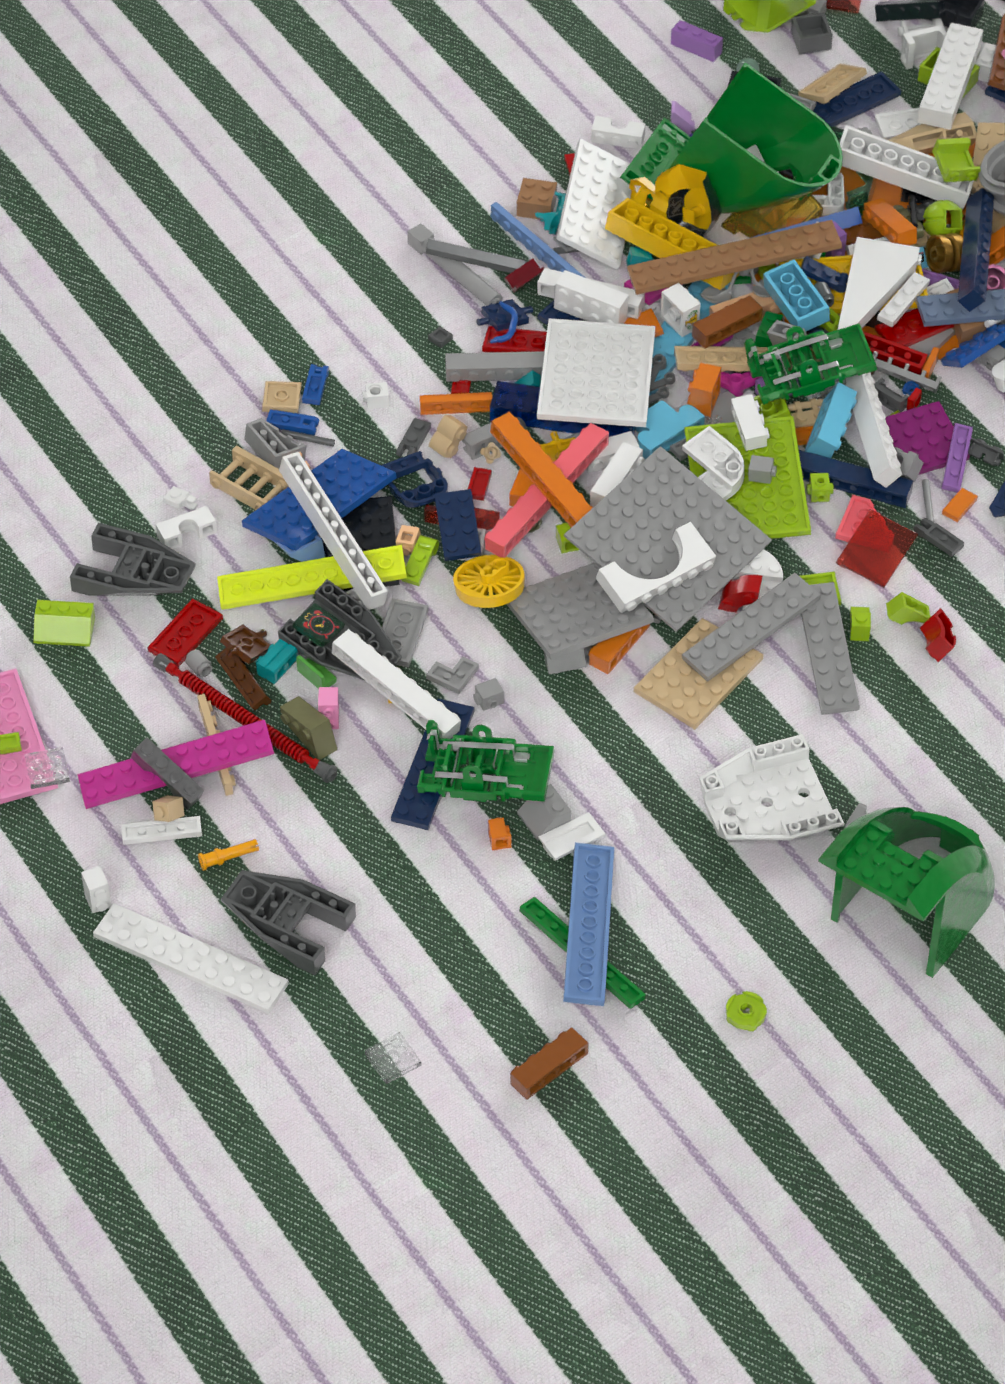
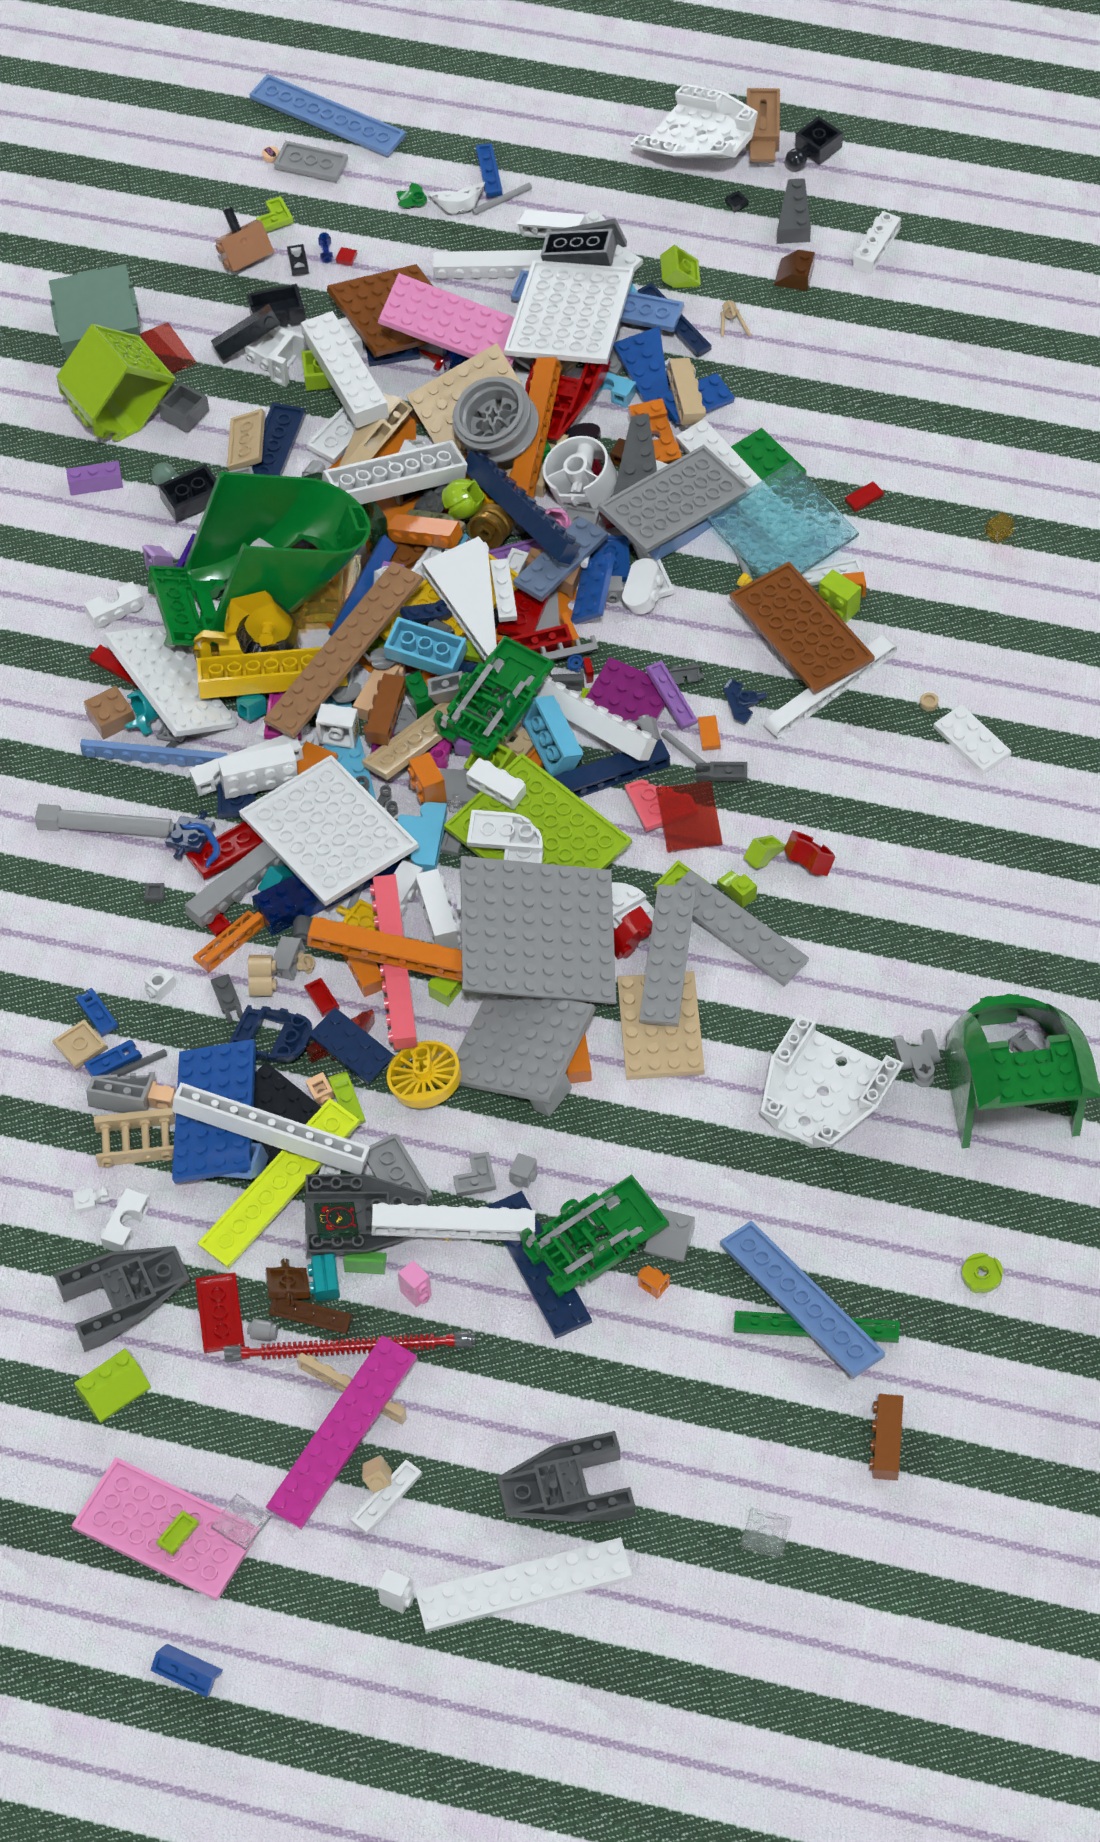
camera: 40 degrees left, 5 degrees up
(152, 759) = (327, 1442): flat silver arch -> none
(219, 856) = (457, 1479): light orange pin -> none
(309, 726) = (412, 1311): olive wedge -> none
(473, 256) = (117, 799): tile -> none
(523, 275) = (172, 787): dark red panel -> none
(562, 839) = (705, 1241): white piece -> none
(629, 591) = (558, 998): white arch -> none
(761, 469) = (548, 816): light grey brick -> none
(819, 487) = (595, 796): lime brick -> none
(912, 208) = (430, 507): black bar -> none
(955, 160) = (432, 442): lime panel -> none

